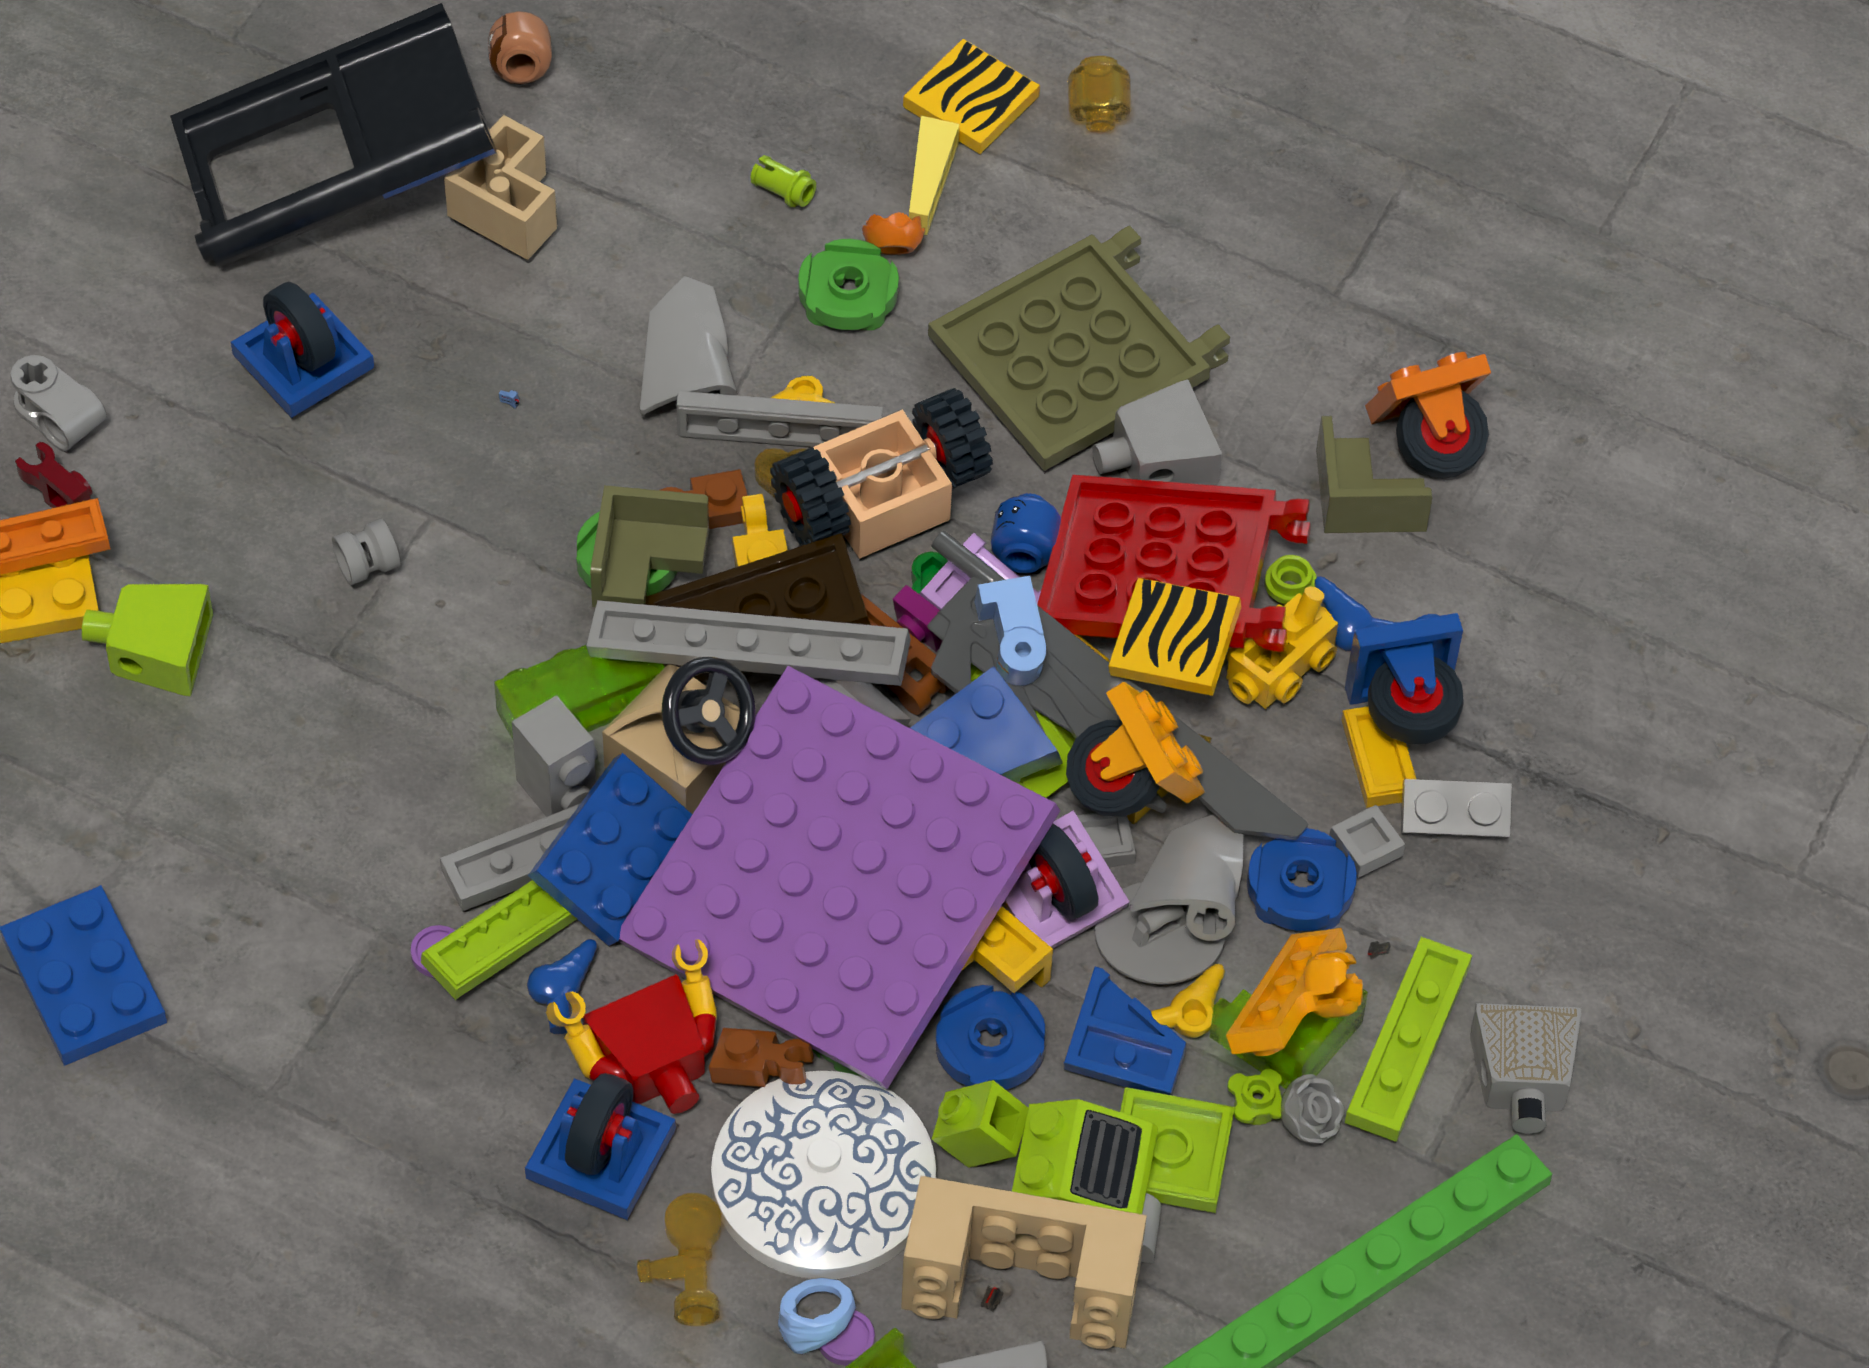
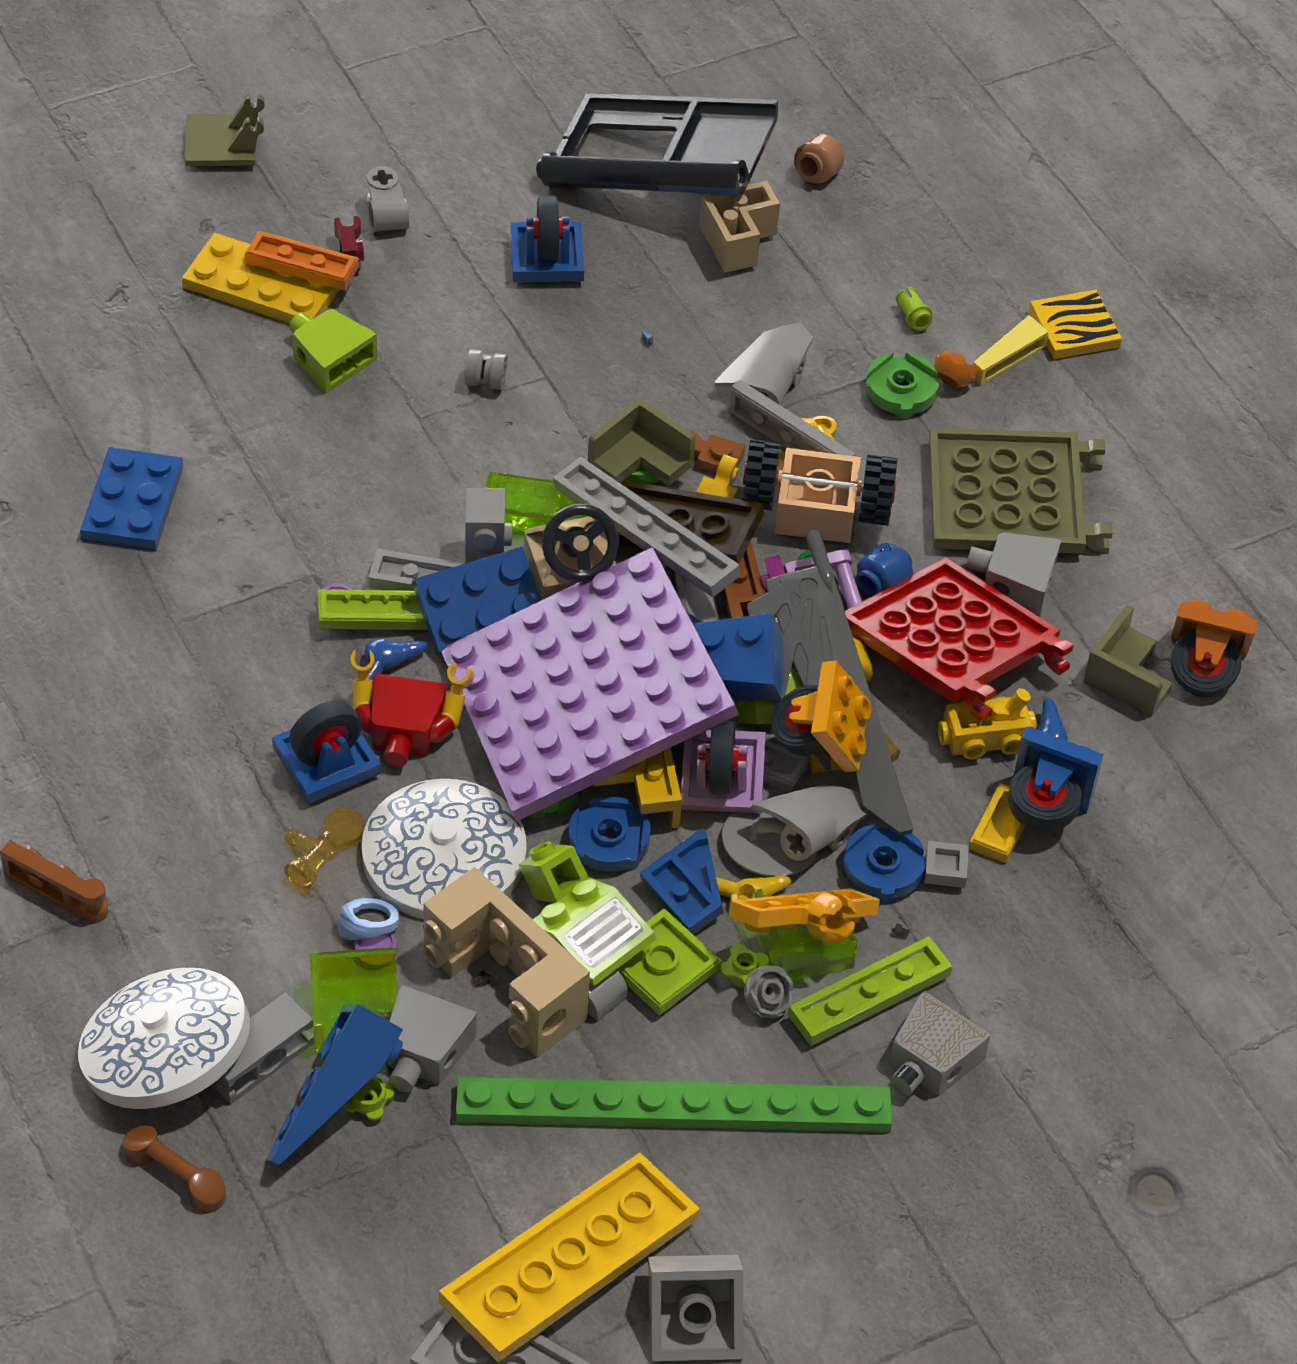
camera: 35 degrees right, 5 degrees down
(753, 1055) = (460, 758): dark orange plate -> none
(1017, 626) = (810, 614): light blue leg -> none
(1099, 93) = (1154, 361): clear yellow head -> none
(1175, 636) = (910, 667): yellow tile -> none
(1285, 569) = (1038, 688): lime plate -> none
(1456, 808) = (1021, 879): light grey plate -> none

